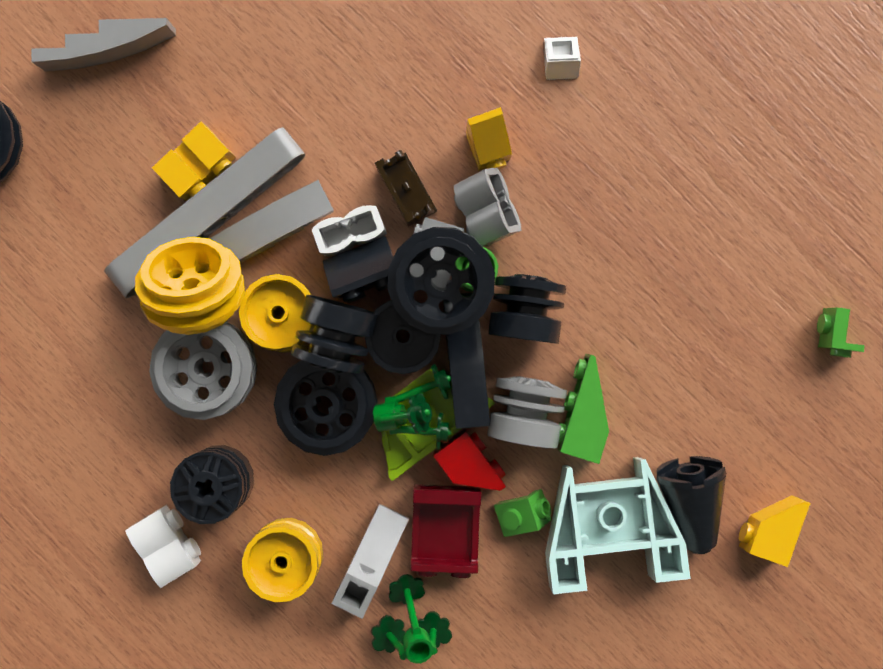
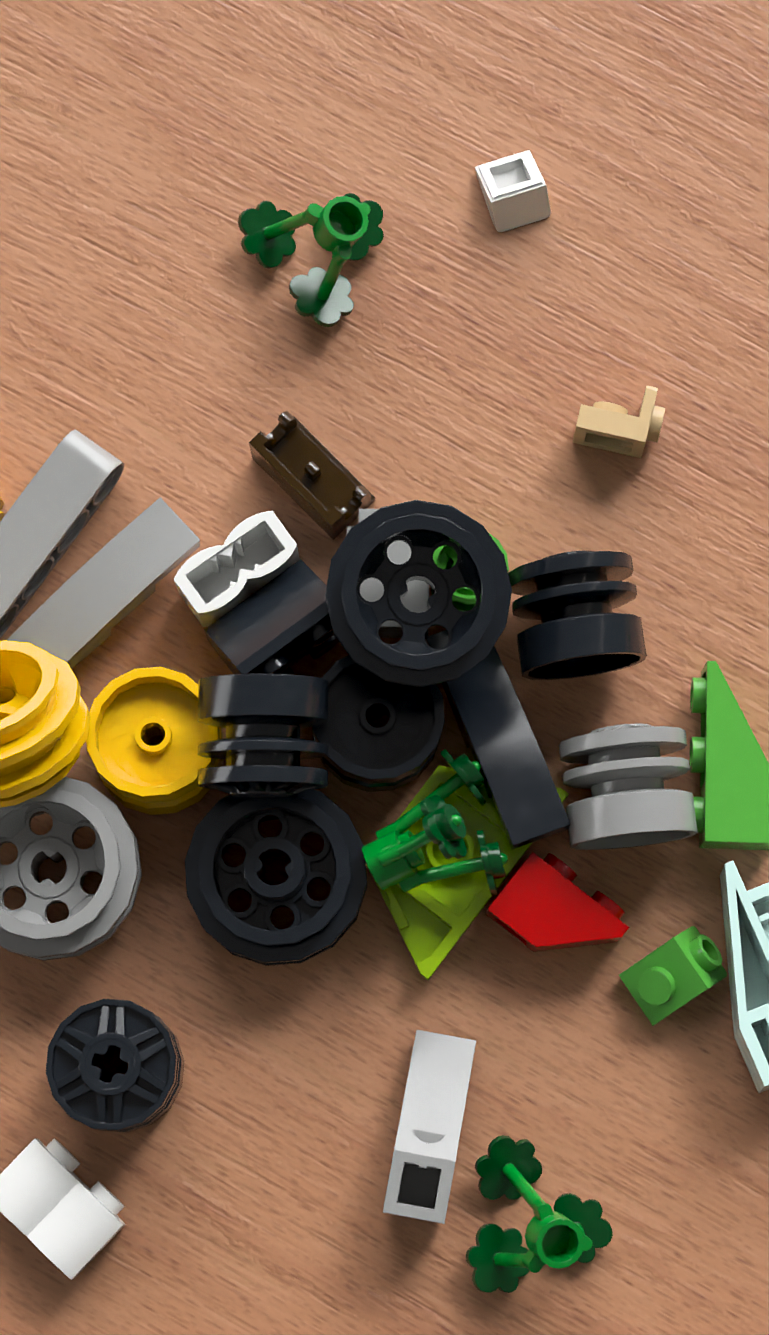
camera: 10 degrees left, 10 degrees down
(273, 577) = (240, 1153): yellow wheel -> none
(445, 530) = (546, 1039): dark red panel -> none
(459, 54) = (340, 227): none -> plant
(487, 207) = (459, 462): light grey brick -> none
(489, 139) = (431, 355): yellow slope -> none
(576, 208) = (611, 429): none -> tan bracket

